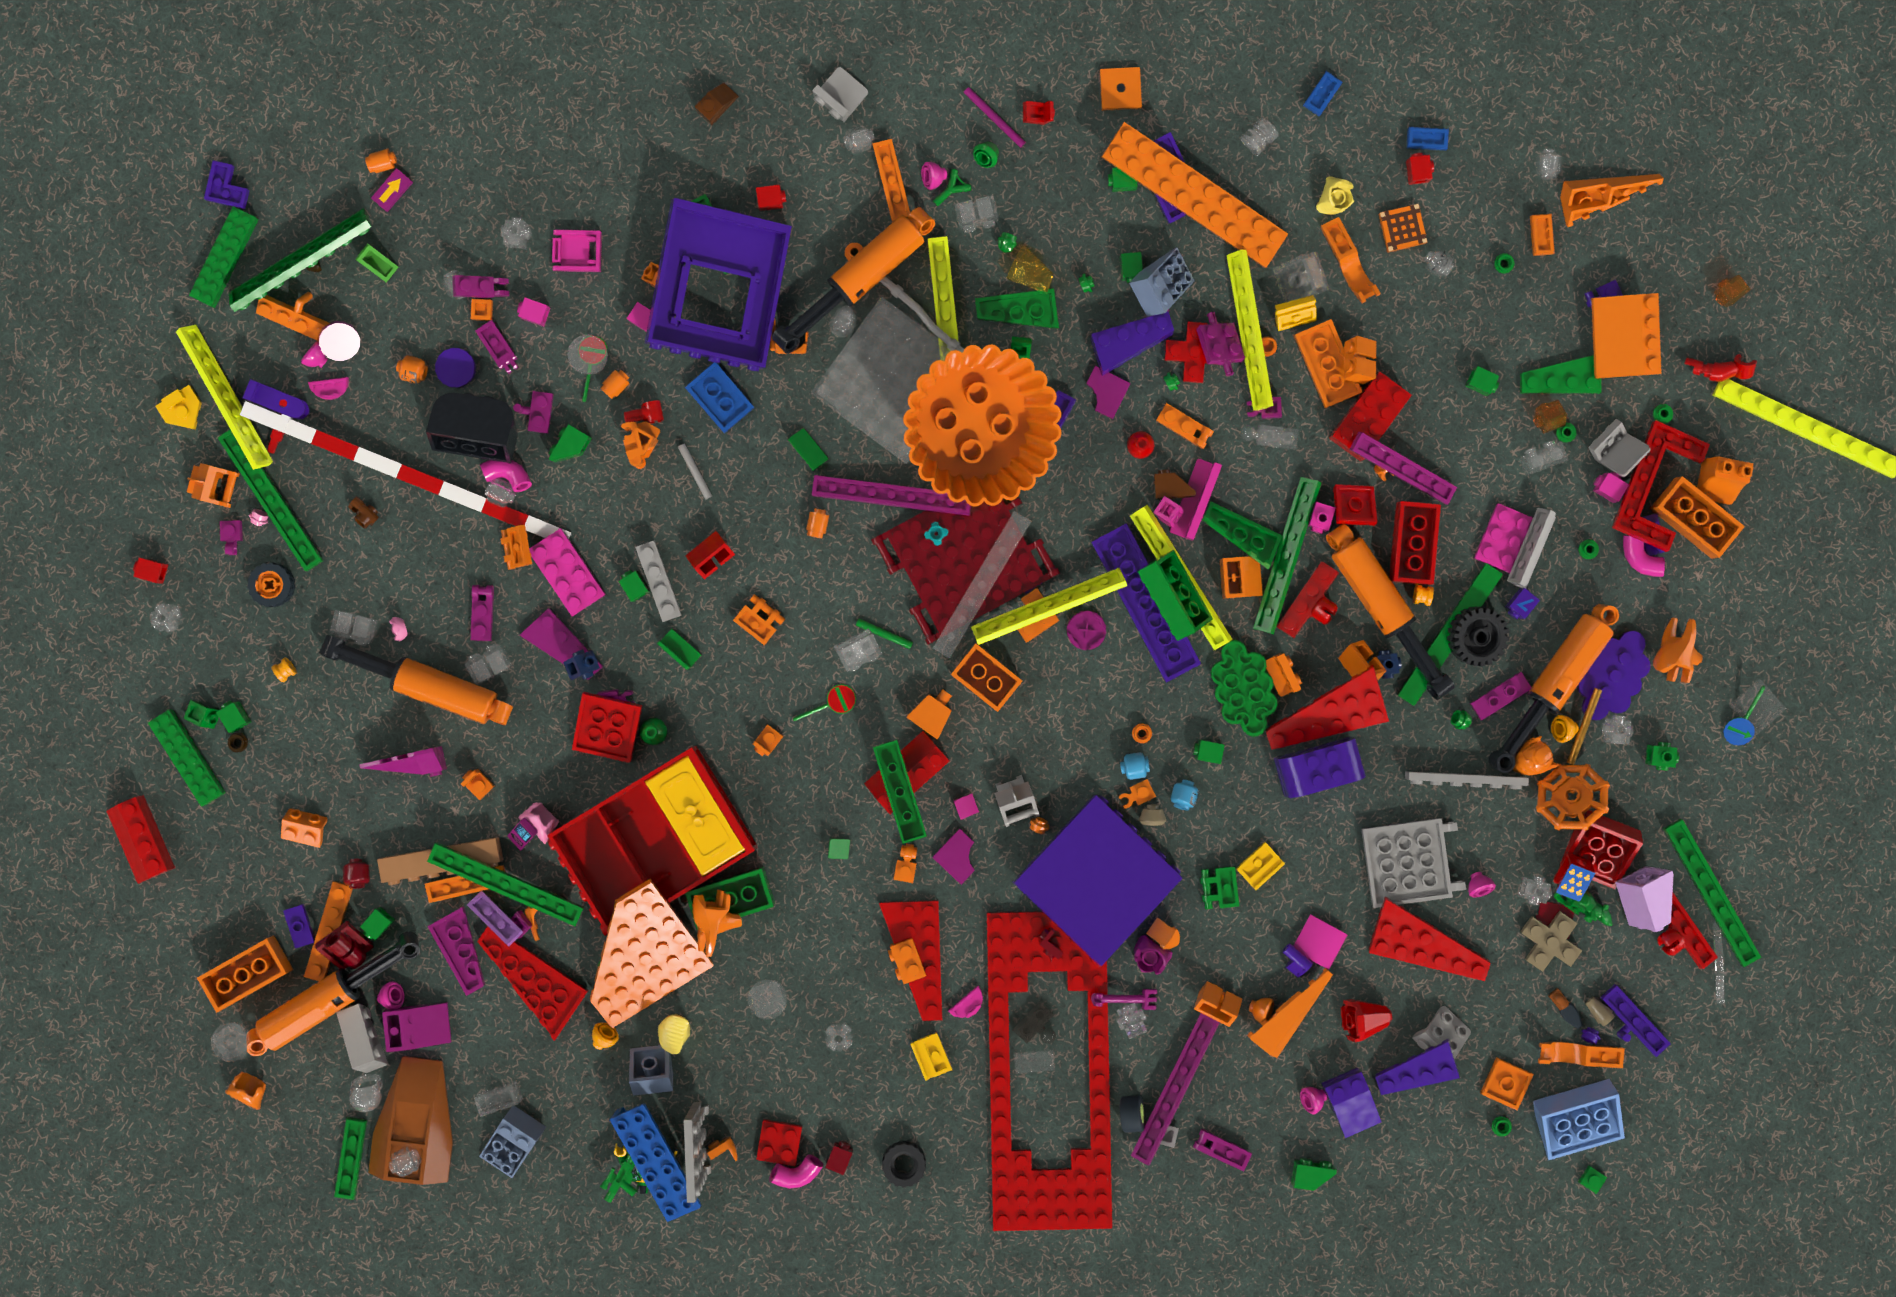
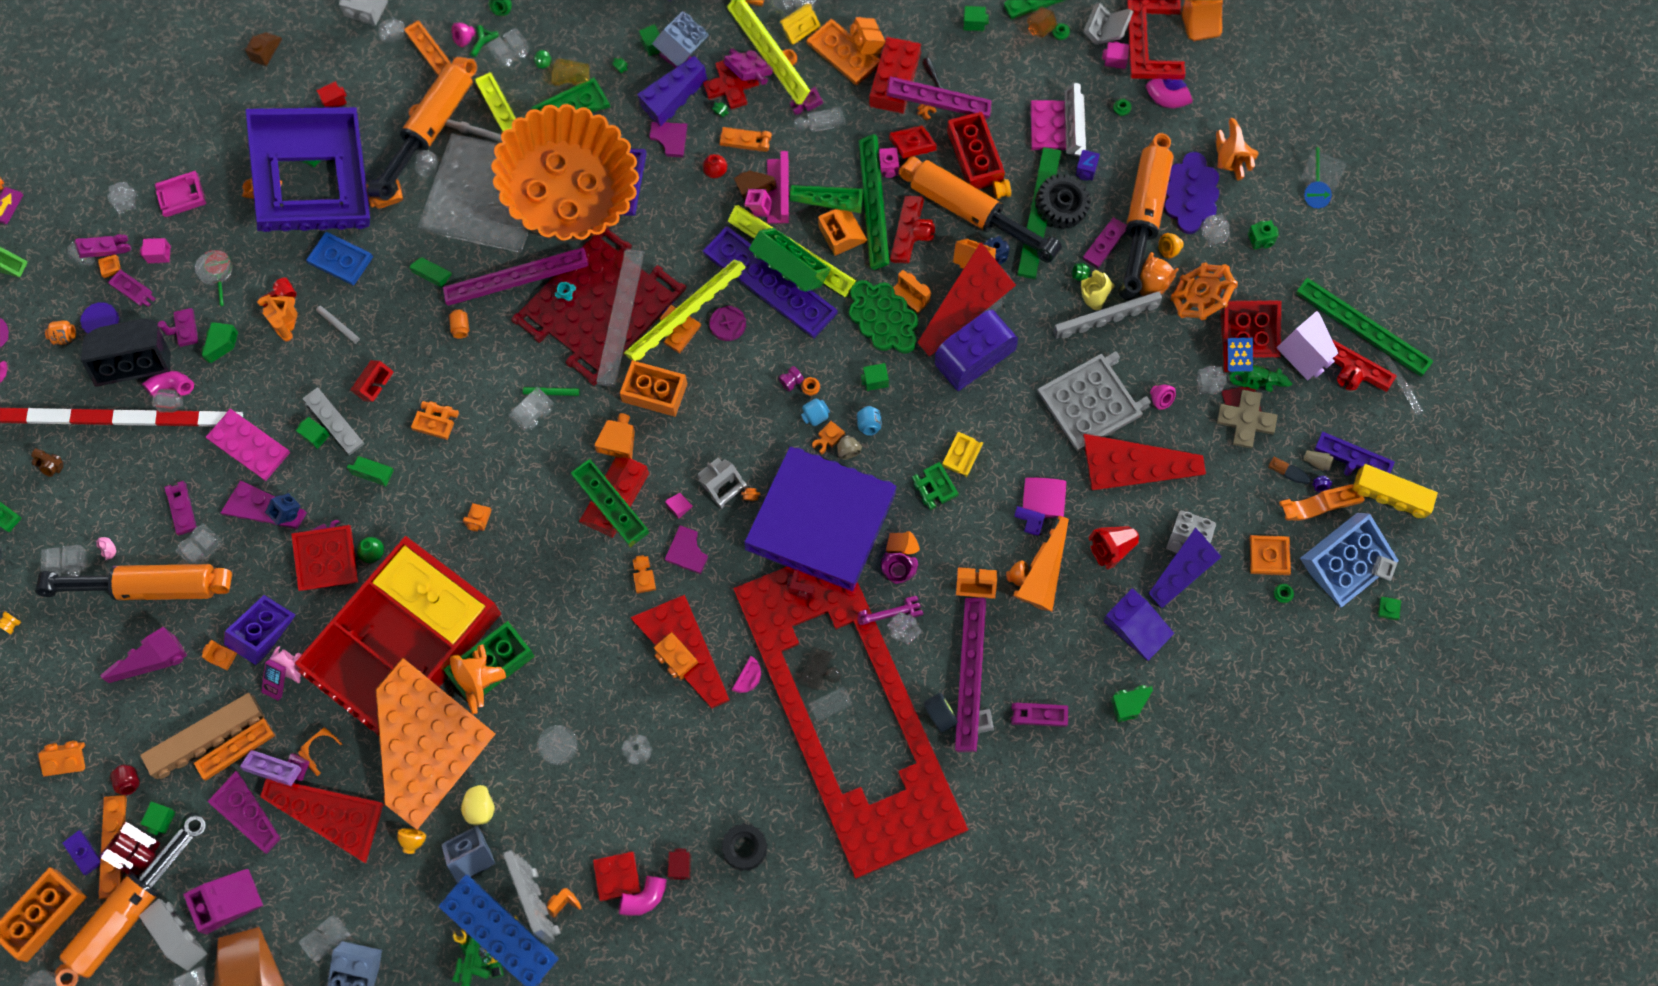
camera: 20 degrees left, 20 degrees down
(391, 995) = (189, 879): dark pink brick -> none
(505, 884) = (270, 727): green plate -> none
(516, 547) = (194, 438): orange plate -> none
(523, 773) = (258, 629): none -> dark purple slope
(615, 383) = (244, 280): orange brick -> none
(639, 316) = (247, 221): dark pink brick -> none
(838, 848) = (576, 584): green slope -> none
(840, 700) = (531, 460): piece -> none
(931, 1056) = (731, 735): yellow plate -> none
(1125, 719) = (791, 378): none -> magenta wheel
(1312, 1099) = (1101, 635): dark pink brick -> none
(1410, 426) = (932, 71): none -> black piece
(1467, 745) = (1096, 289): none -> light yellow hair
(1540, 459) = (1051, 53): clear brick -> none
(1584, 726) = (1186, 237): pearl gold bar -> none
(1607, 1141) = (1384, 568): none -> light grey tile
(1655, 1074) = (1394, 491): none -> yellow brick
(1697, 517) = (1199, 48): orange brick -> none

